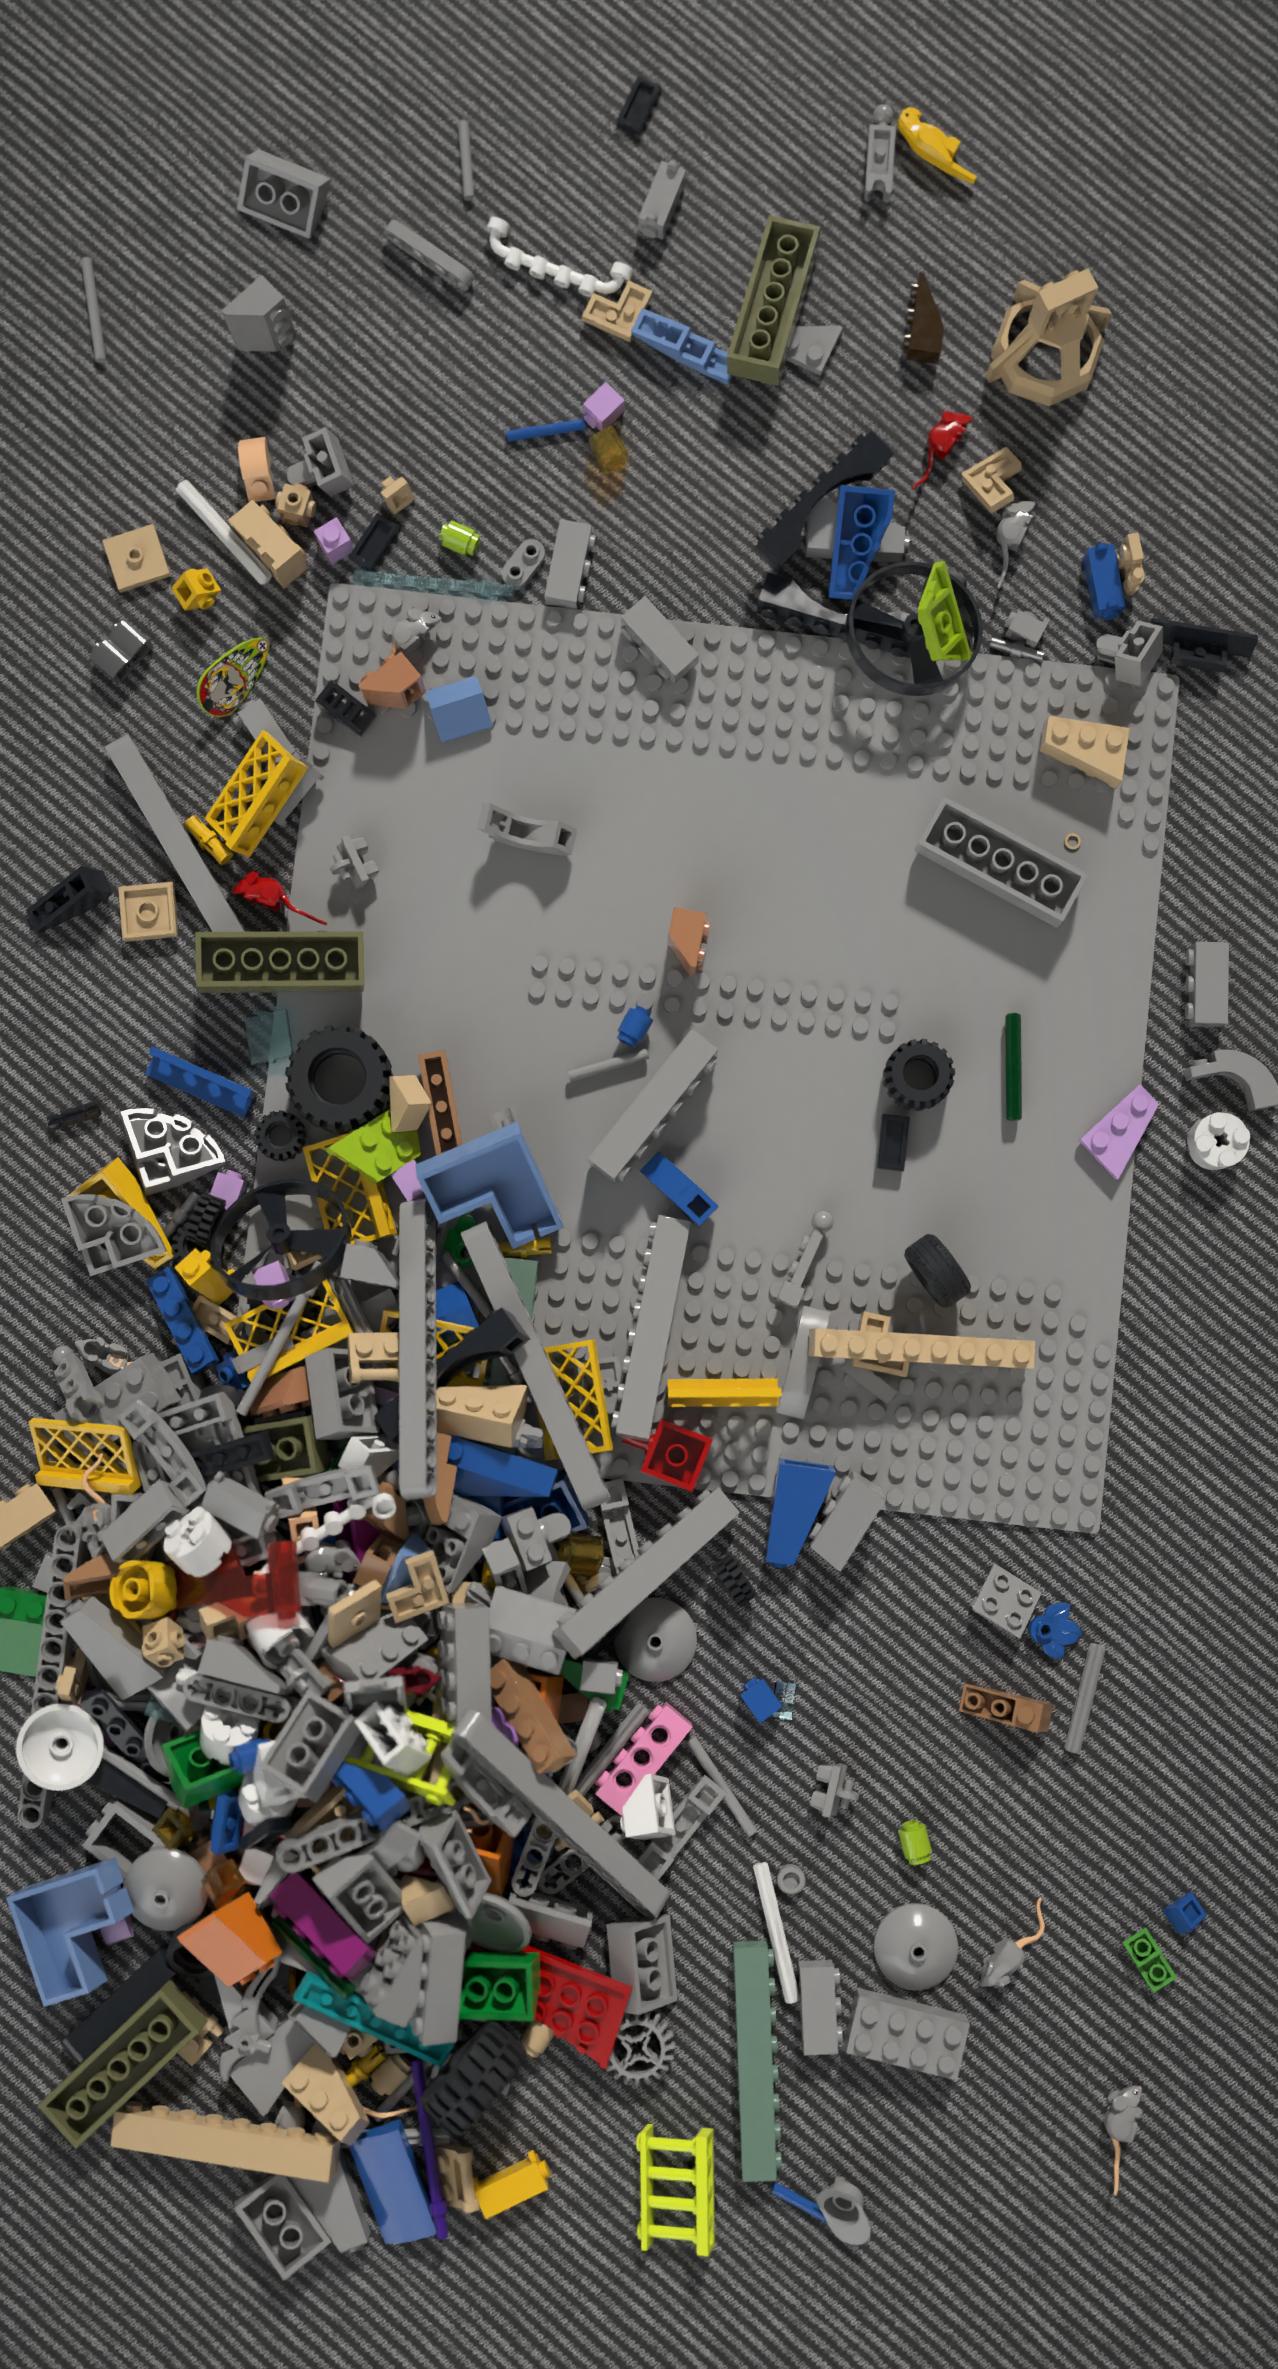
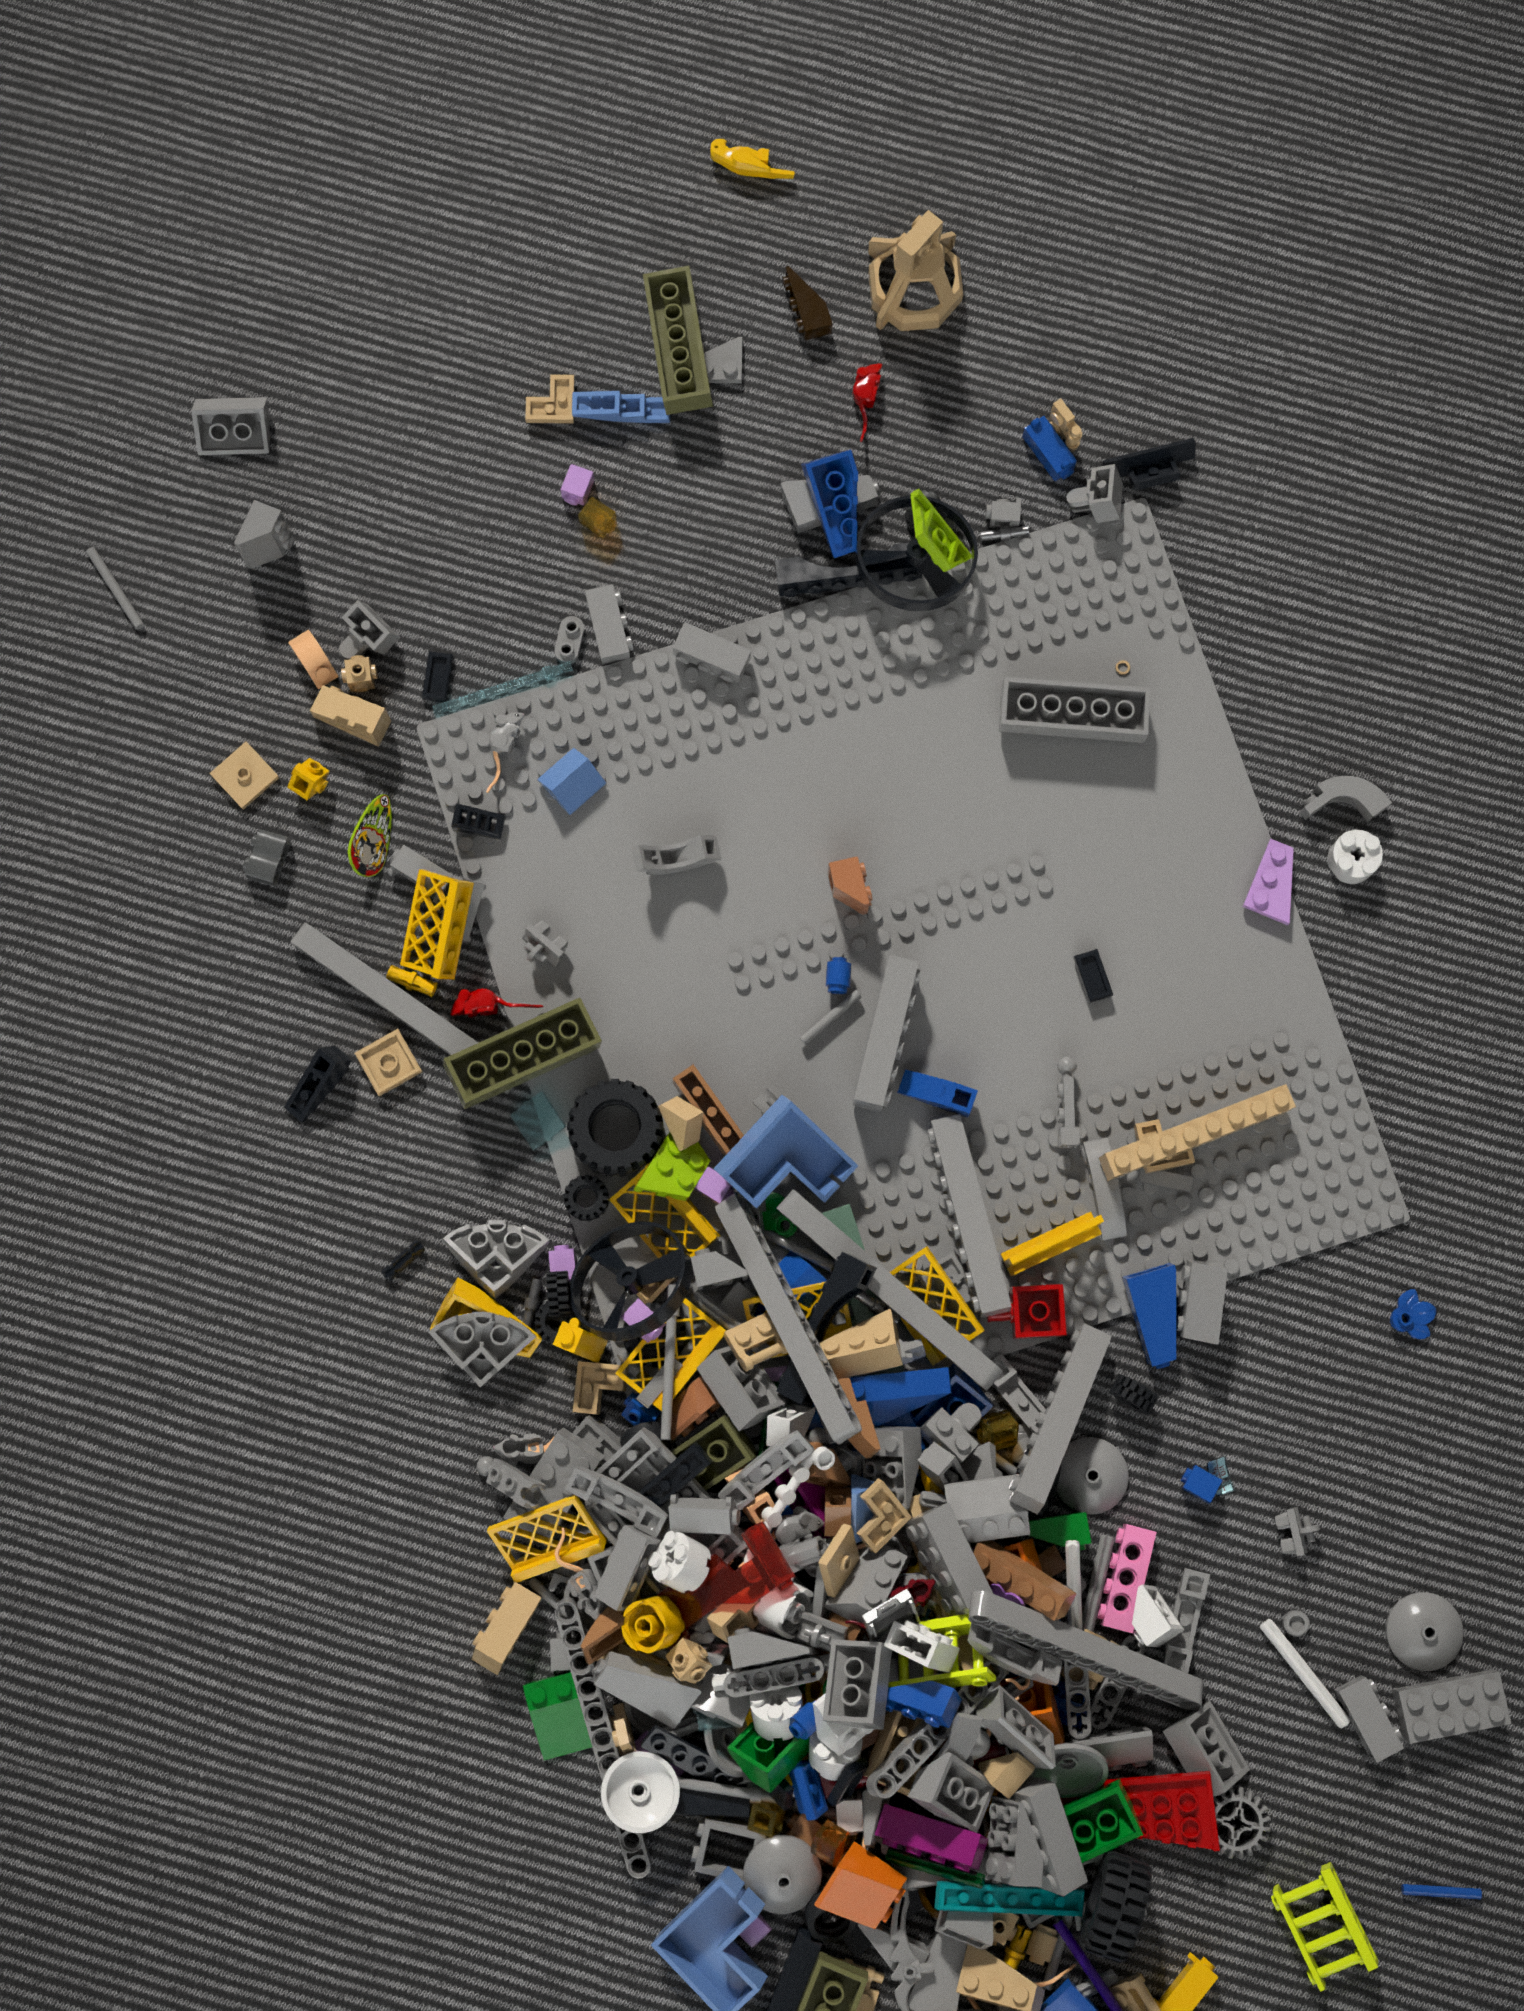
camera: 25 degrees left, 5 degrees down
(182, 1321) = (574, 1389): blue plate -> none
(200, 1083) = (497, 1184): blue fence -> none
(224, 532) = (308, 722): white axle -> none
(334, 540) = (404, 689): lavender brick -> none
(393, 684) = (511, 785): nougat slope -> none
(397, 494) = (439, 628): tan tile -> none
(429, 255) = (376, 424): light grey beam -> none
(459, 538) = (507, 642): lime brick -> none
(466, 163) = (370, 334): light grey bar -> none
(535, 1247) = (842, 1193): yellow pin -> none
(536, 2038) = (1149, 1851): tan brick -> none
(545, 430) = (537, 523): blue bar -> none
(563, 274) = (493, 392): white bar -> none
(600, 1676) = (1063, 1520): light grey brick -> none
(639, 105) = (492, 230): black tile -> none
(662, 199) = (547, 298): light grey brick -> none
(716, 1777) = (1214, 1579): light grey bar -> none
(754, 2061) = (1338, 1788): sand green brick -> none
(844, 2212) = (1472, 1880): light grey piece -> none
(860, 464) = (811, 440): black arch -> none
(880, 154) = (708, 186): light grey plate -> none
(915, 1842) = (1383, 1543): lime brick -> none
(929, 1054) = (1089, 931): black tyre -> none
(937, 1270) = (1180, 1062): black tyre -> none
(988, 476) = (917, 406): tan plate -> none
(1006, 1601) = (1362, 1309): light grey hinge -> none
(1006, 1708) = (1404, 1397): medium nougat slope -> none
(1007, 1957) = (1503, 1604): light grey animal -> none
(1012, 529) = (956, 439): light grey animal -> none
(1013, 1067) = (1162, 870): dark green axle -> none
(1084, 1698) = (1464, 1360): light grey axle -> none
(1087, 746) = (1099, 585): tan wedge -> none
(1207, 984) = (1286, 734): light grey brick -> none

